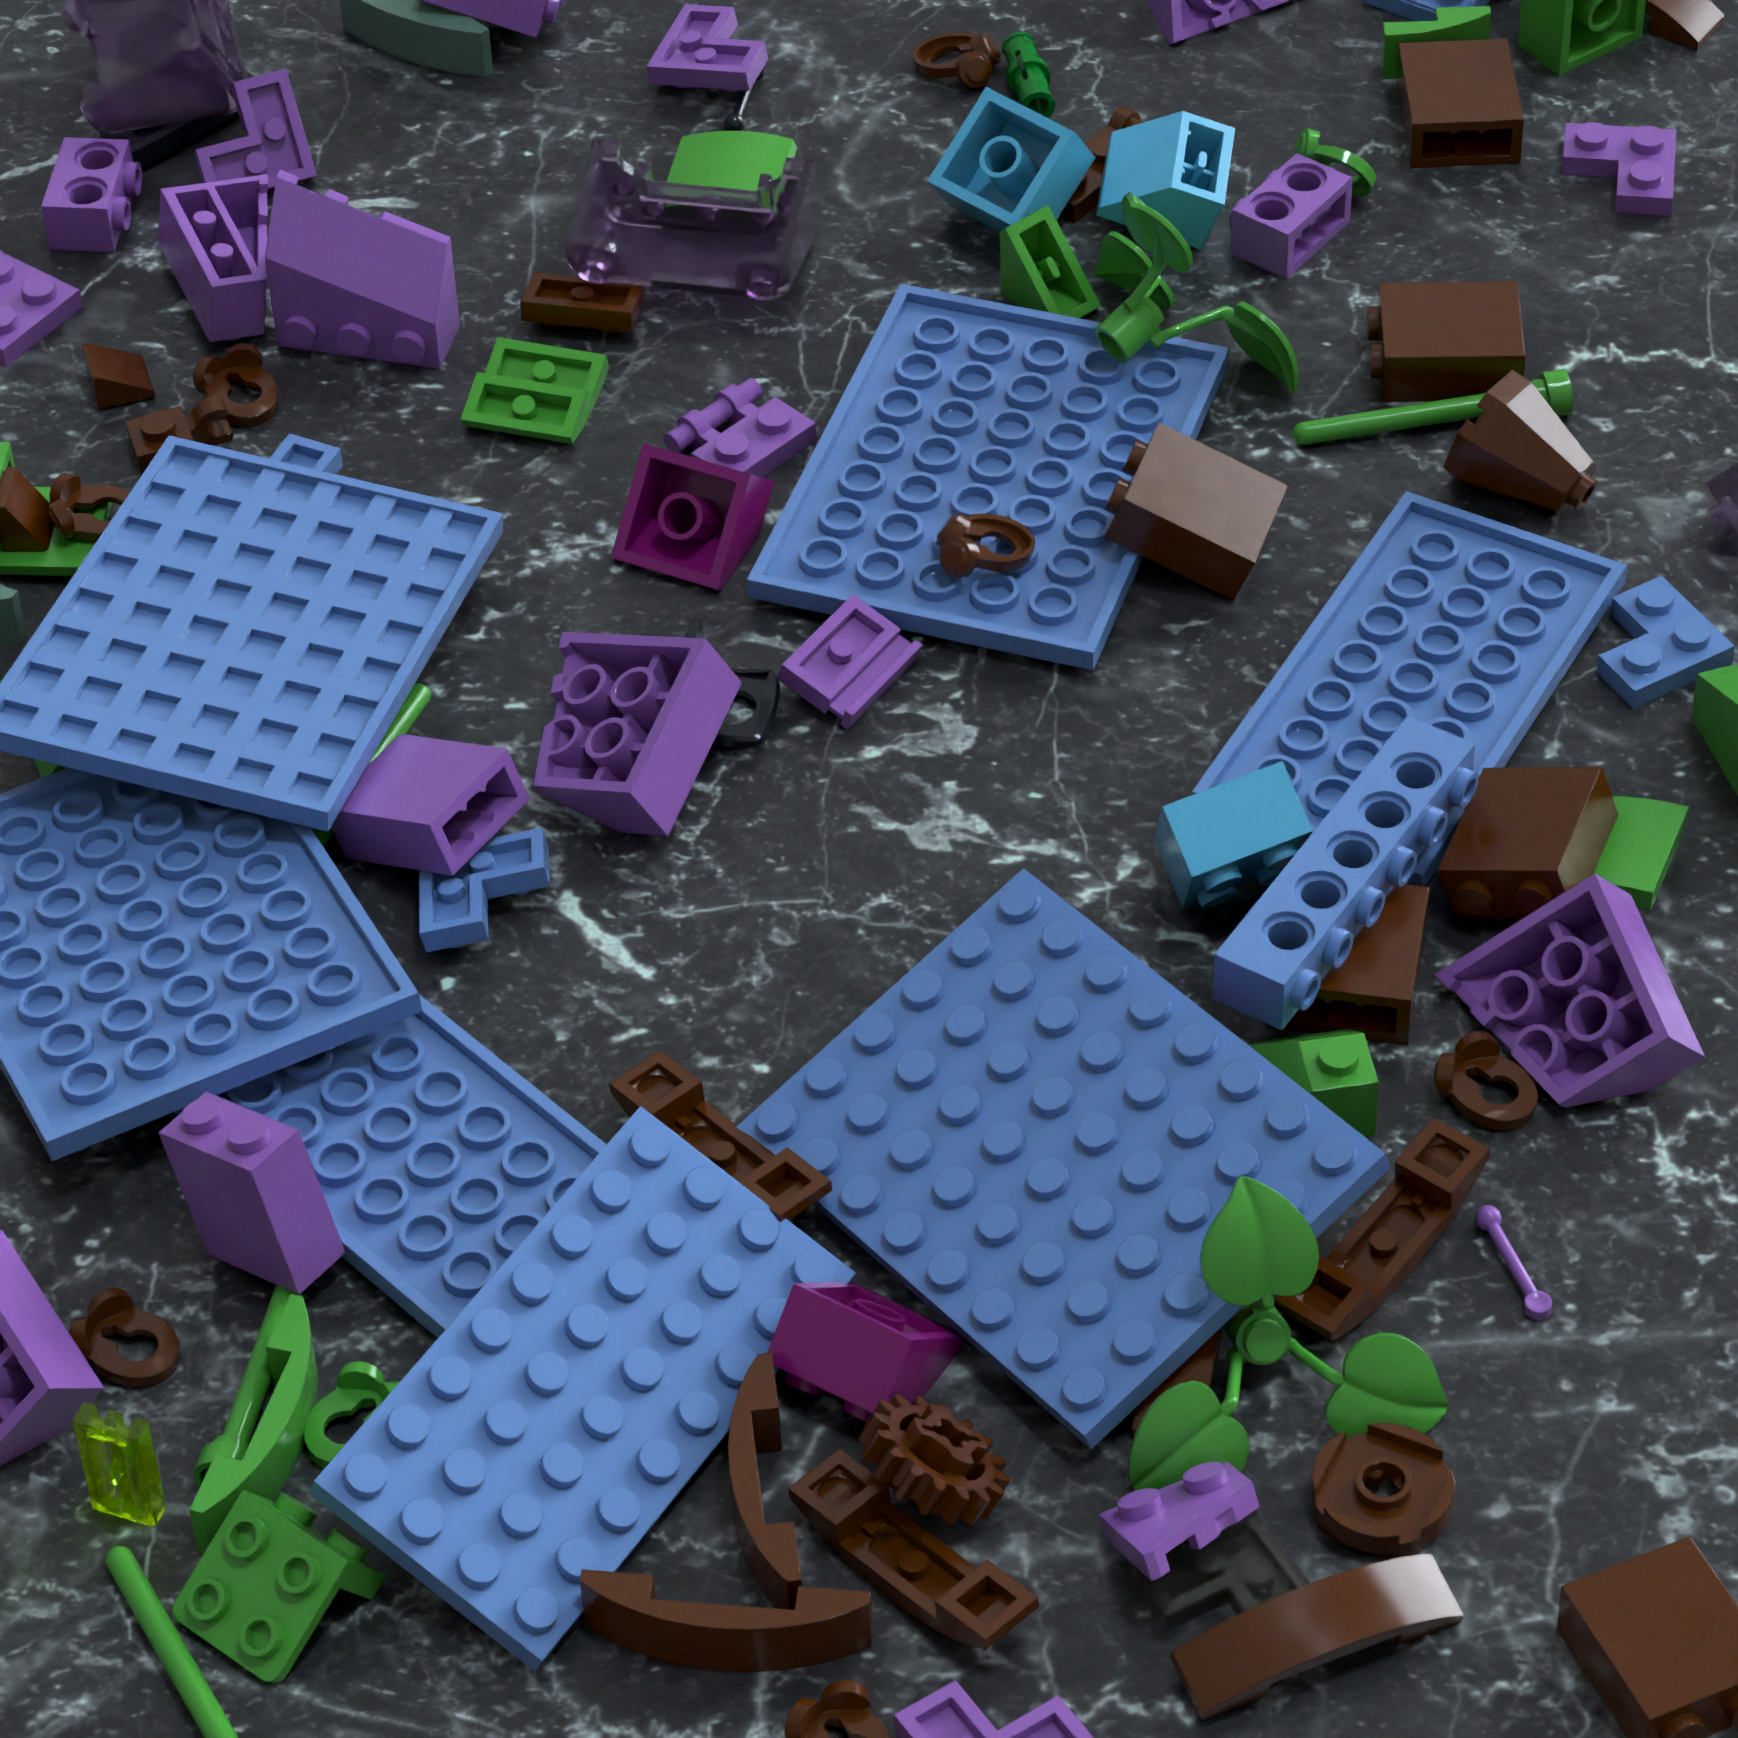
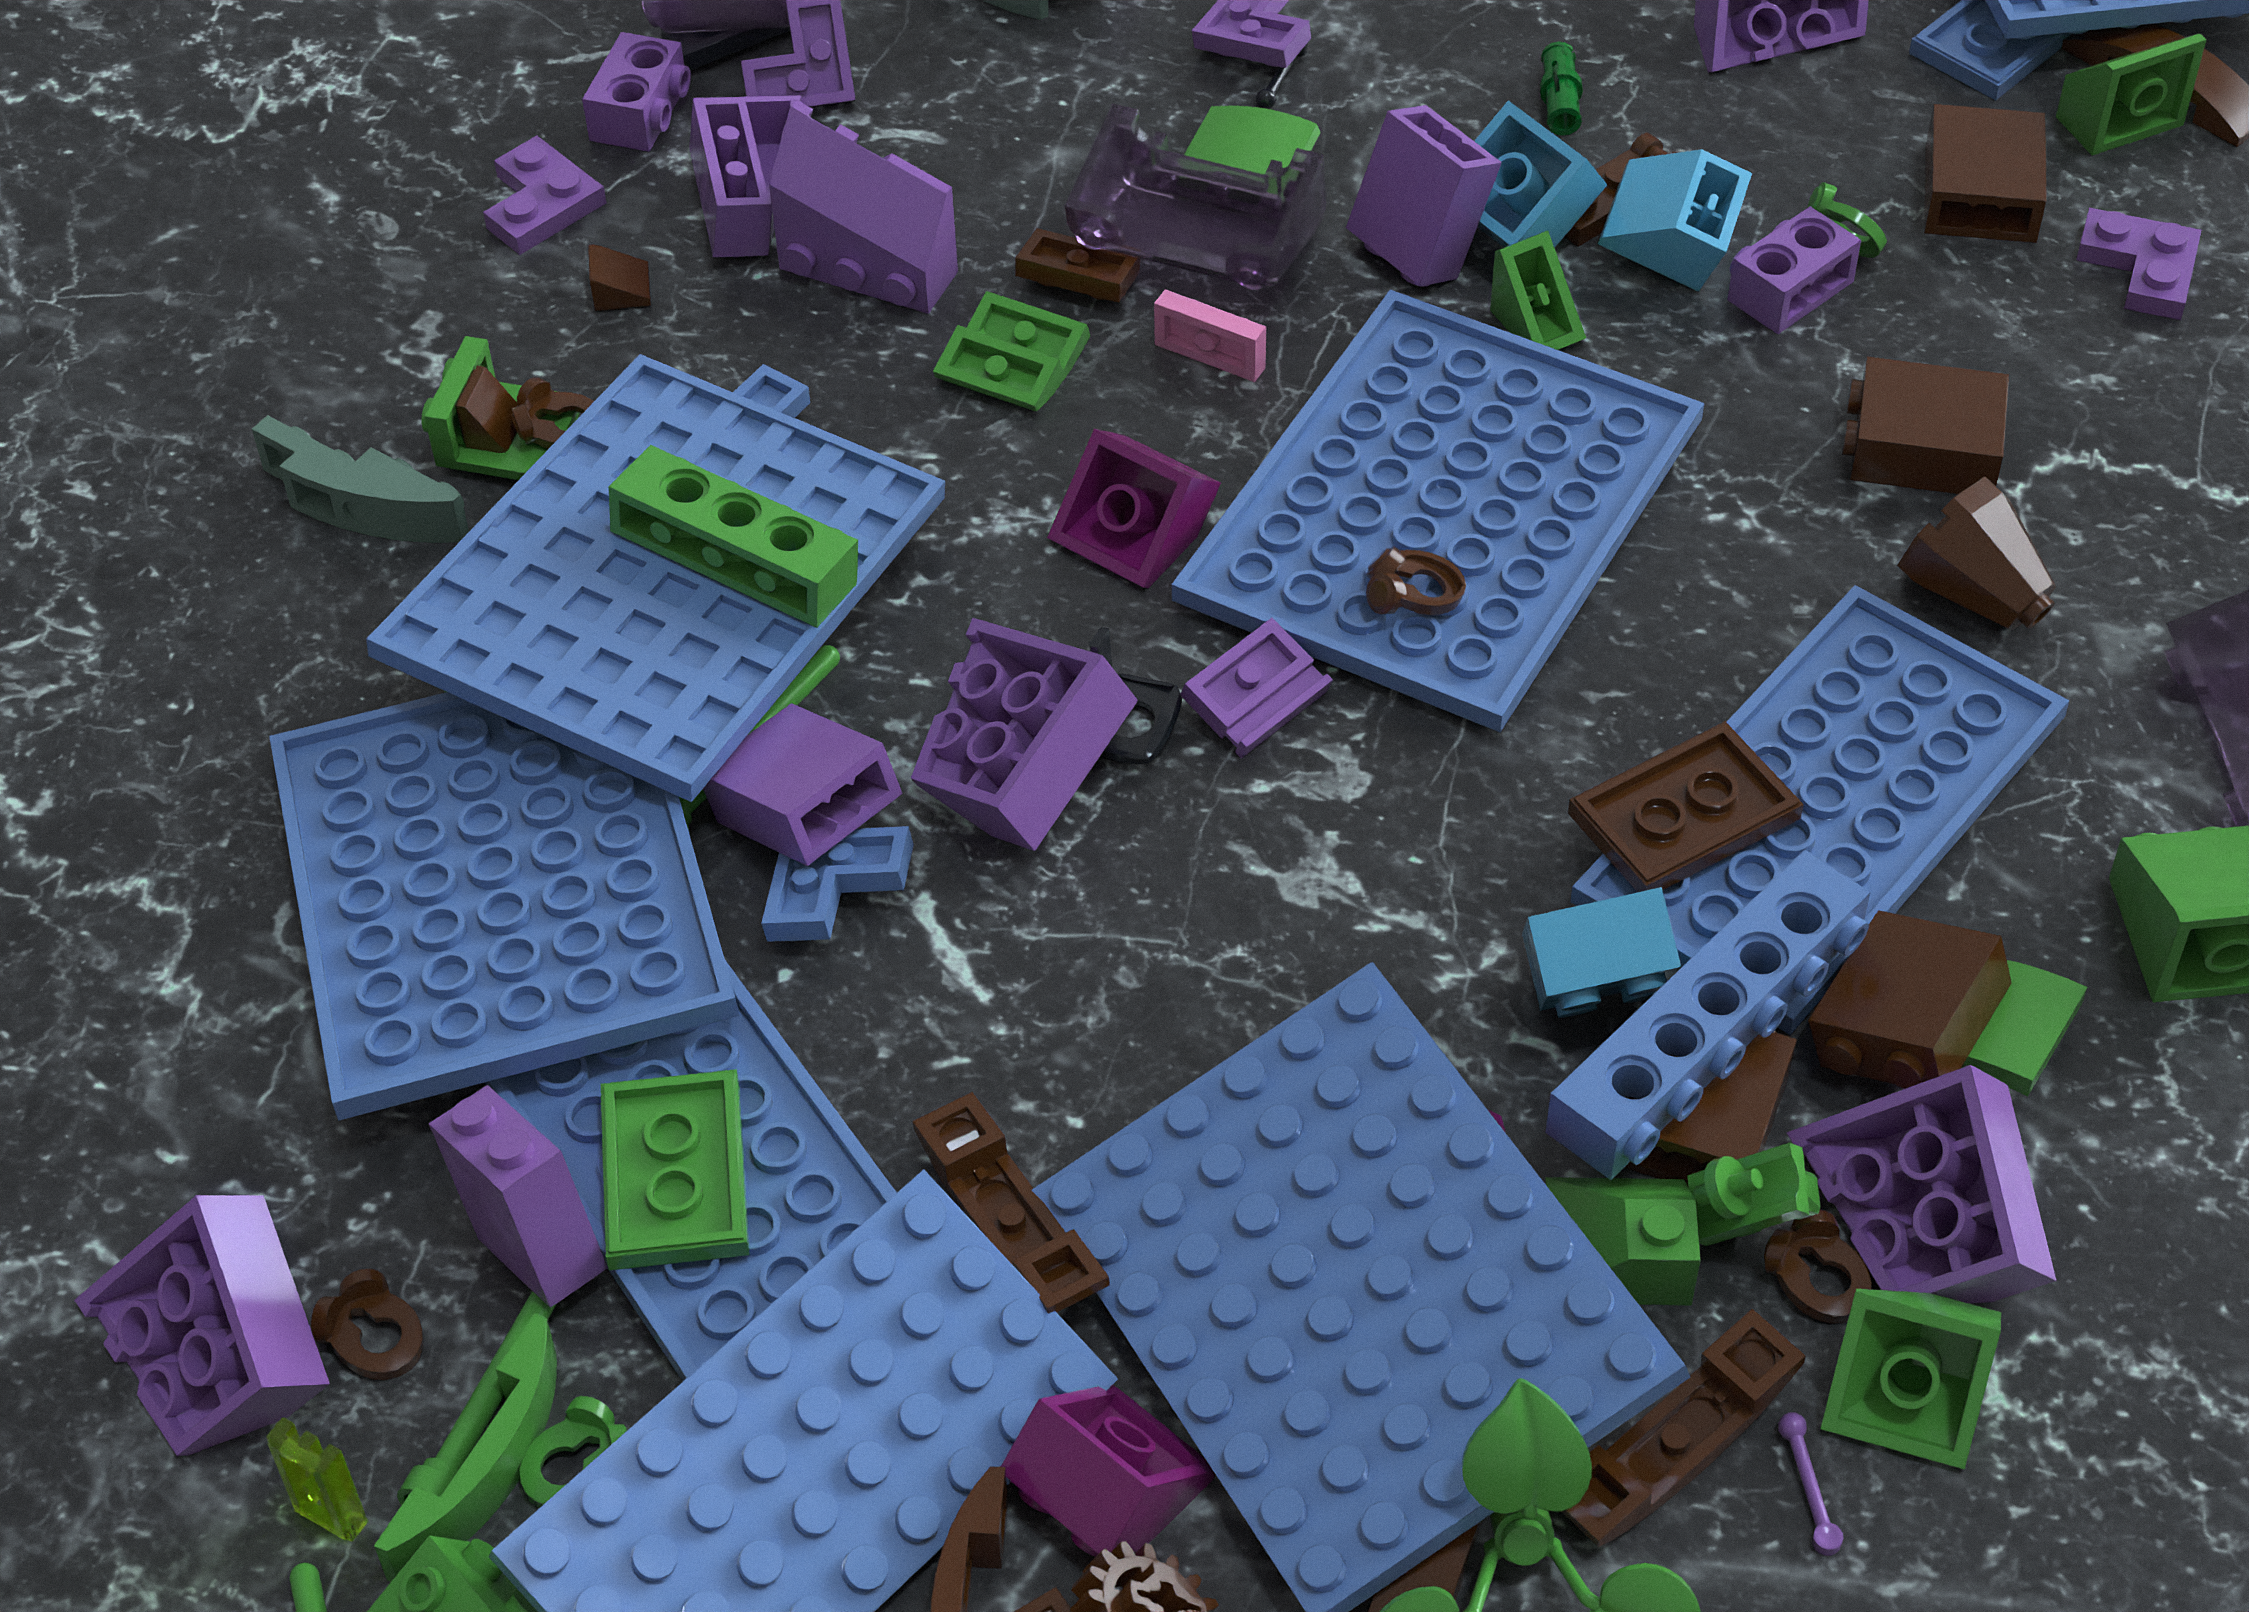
camera: 10 degrees right, 5 degrees up
(151, 431) = (662, 344): reddish brown plate -> none
(242, 365) = (739, 285): reddish brown piece -> none
(312, 583) = (733, 535): none -> bright green brick
(390, 1156) = (673, 1170): none -> bright green tile
(730, 349) = (1210, 335): none -> bright pink plate
(756, 440) = (1215, 436): medium lavender plate -> none
(916, 190) = (1422, 195): none -> medium lavender brick
(971, 68) = (1509, 71): reddish brown piece -> none
(1139, 316) = (1612, 366): bright green plant -> none
(1193, 510) = (1632, 576): brick -> none
(1285, 705) = (1685, 809): none -> reddish brown tile
(1415, 1020) = (1752, 1193): none -> bright green hips
(1449, 25) = (1990, 91): bright green slope -> none
(1552, 385) = (2025, 494): bright green piece -> none
(1588, 1153) = (1913, 1373): none -> bright green slope
(1668, 644) = (2102, 791): medium blue plate -> none

